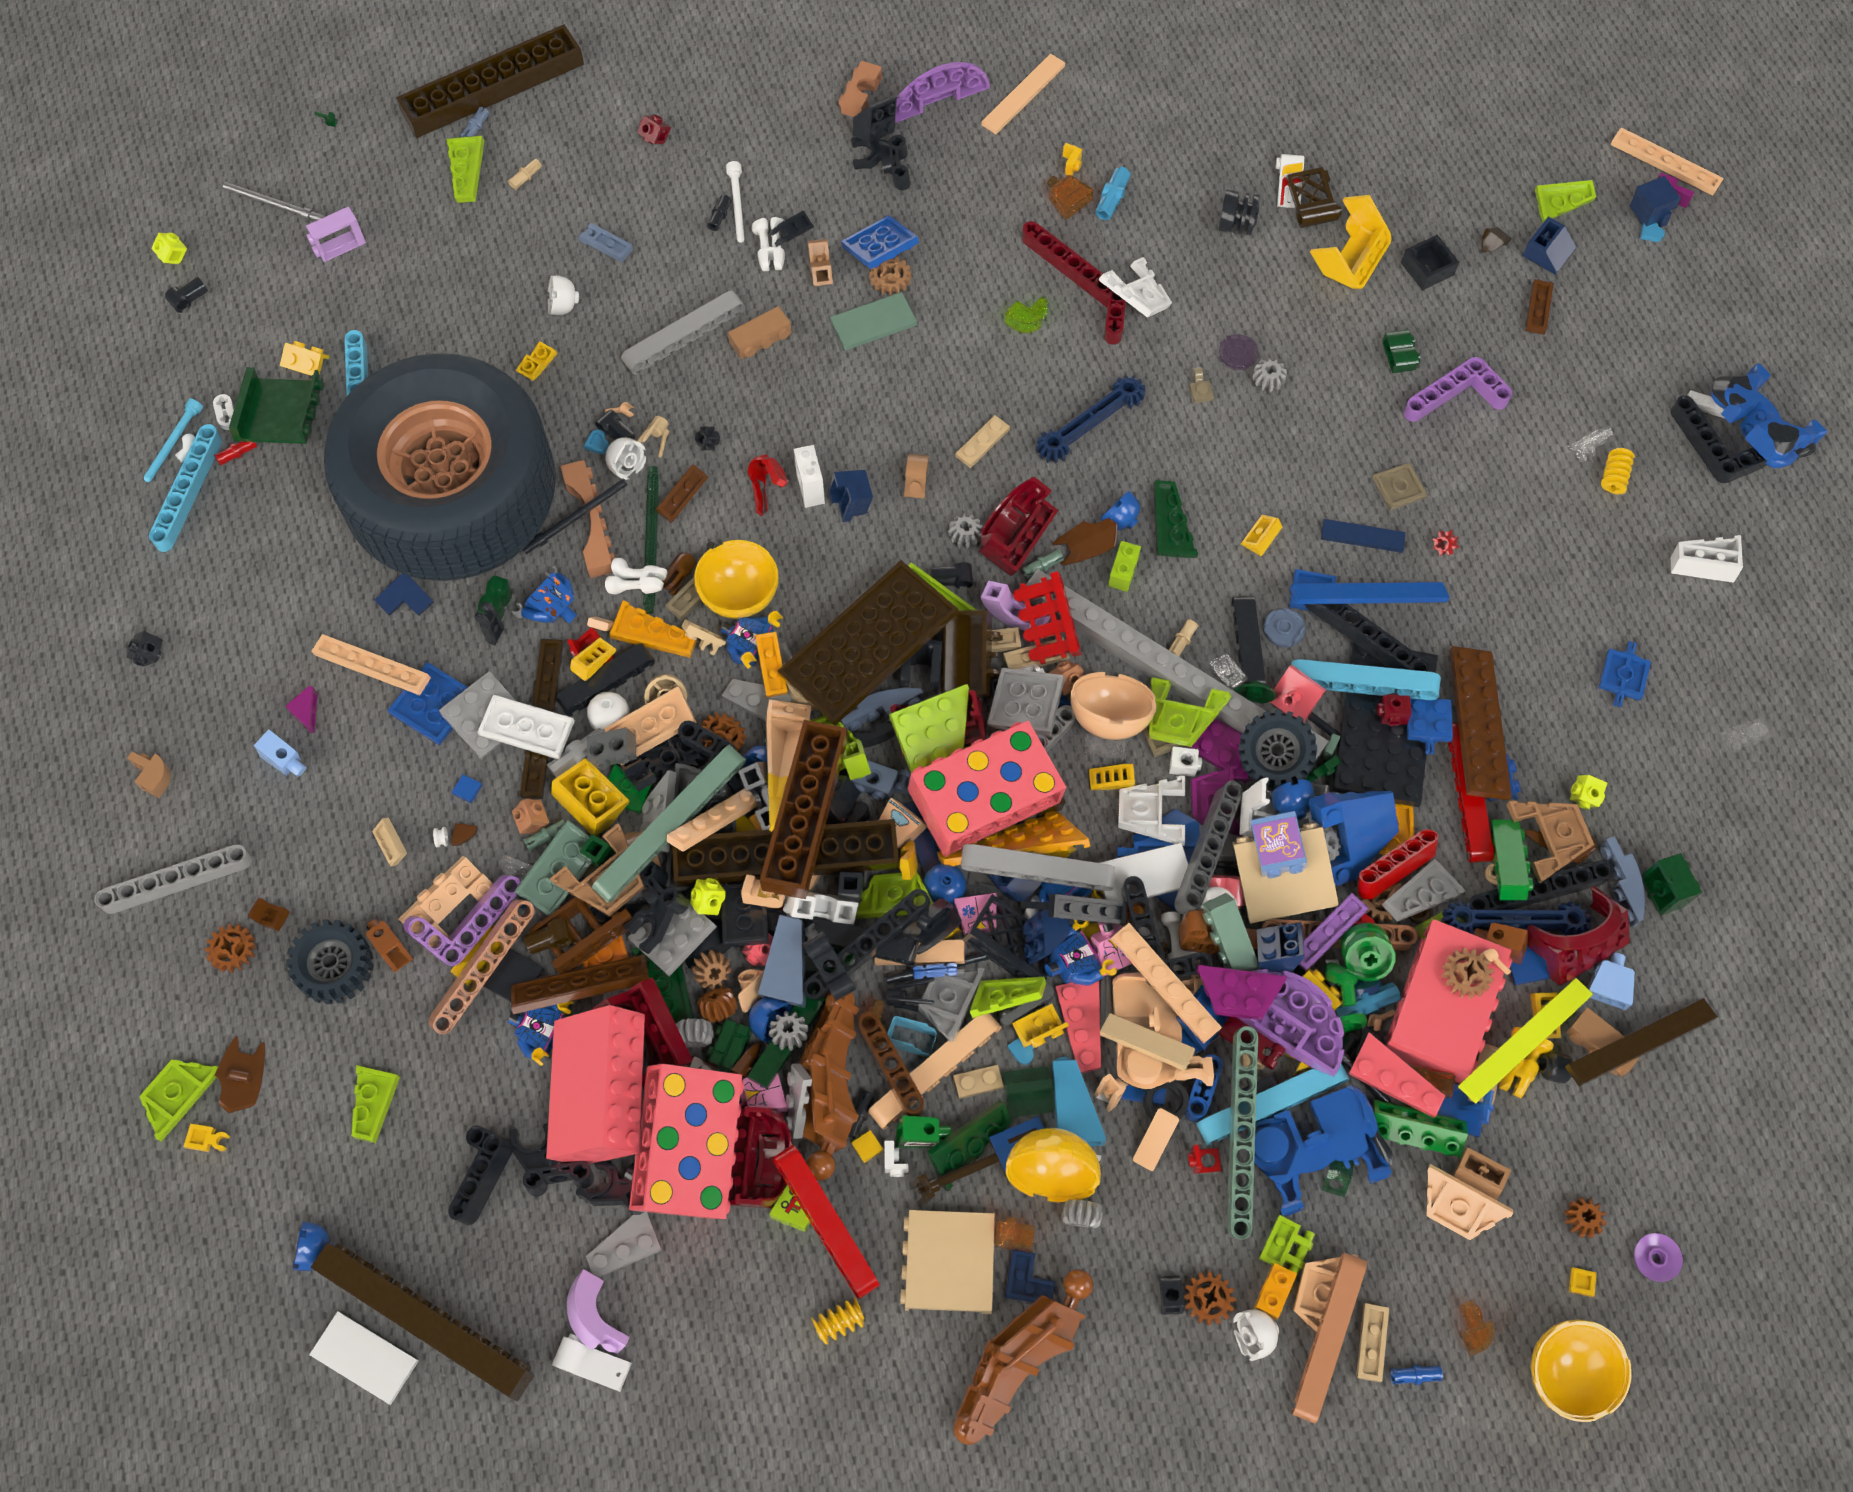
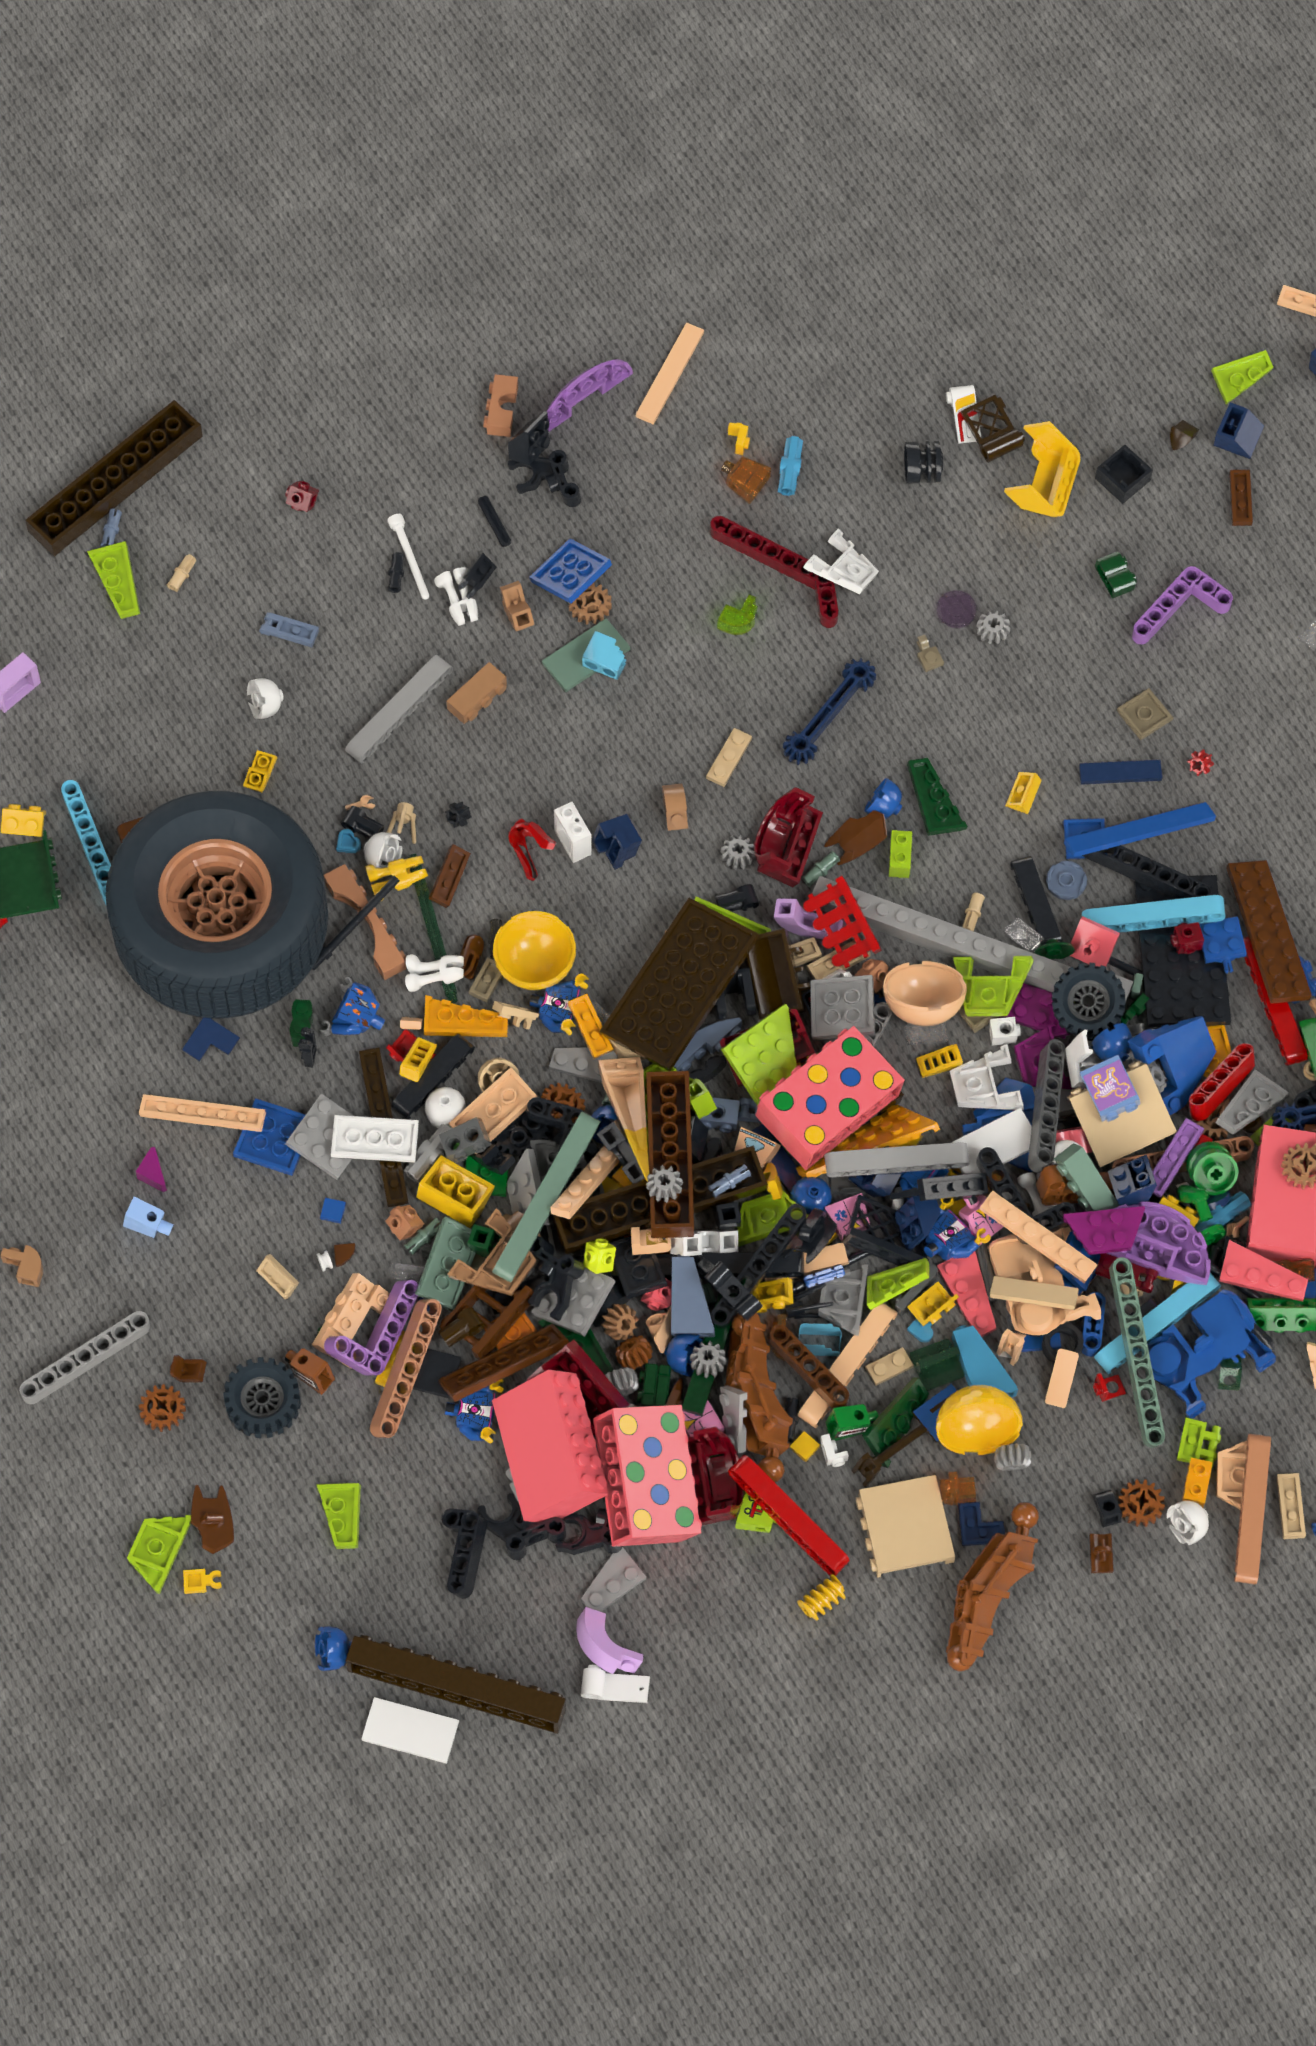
camera: 15 degrees left, 0 degrees up
(635, 478) = (400, 869): none -> yellow piece
(785, 845) = (667, 1190): none -> light grey gear
(824, 187) = (494, 521): none -> black axle
(859, 849) = (729, 1180): none -> sand blue pin
(876, 978) = (774, 1294): none -> yellow bracket
(887, 323) = (604, 656): none -> medium azure piece
(1152, 1346) = (1101, 1553): none -> reddish brown hips

